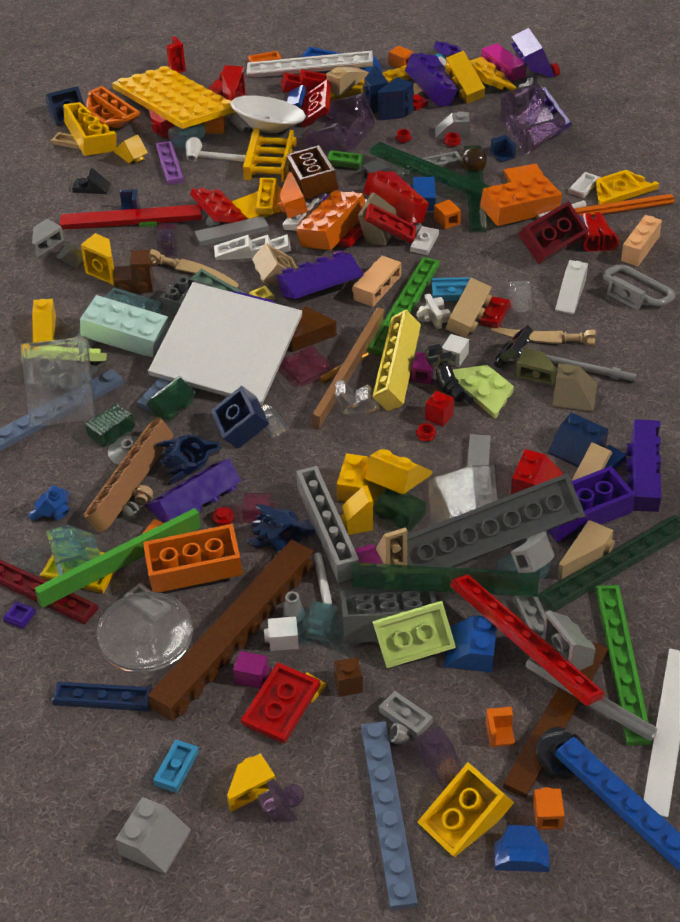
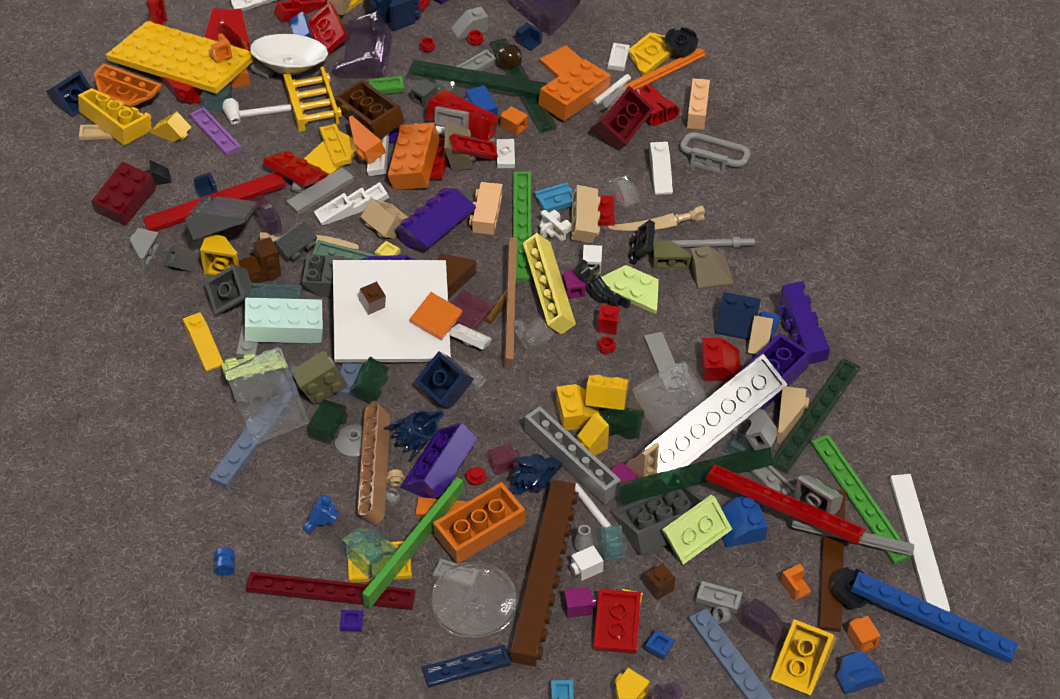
camera: 25 degrees left, 5 degrees up
(54, 190) = (123, 193): none -> dark red brick
(91, 282) = (228, 288): none -> dark grey slope
(112, 220) = (218, 214): none -> dark grey slope
(121, 381) = (319, 378): none -> olive brick
(177, 263) = (296, 241): none -> dark grey brick
(204, 93) = (221, 49): none -> orange panel
(208, 323) = (372, 298): none -> reddish brown brick
(265, 357) = (436, 316): none -> orange tile
(293, 388) = (470, 337): none -> white plate
(313, 742) = (659, 644): none -> blue plate
(388, 194) = (445, 114): none -> light grey tile
(652, 182) = (683, 49): none -> black plate

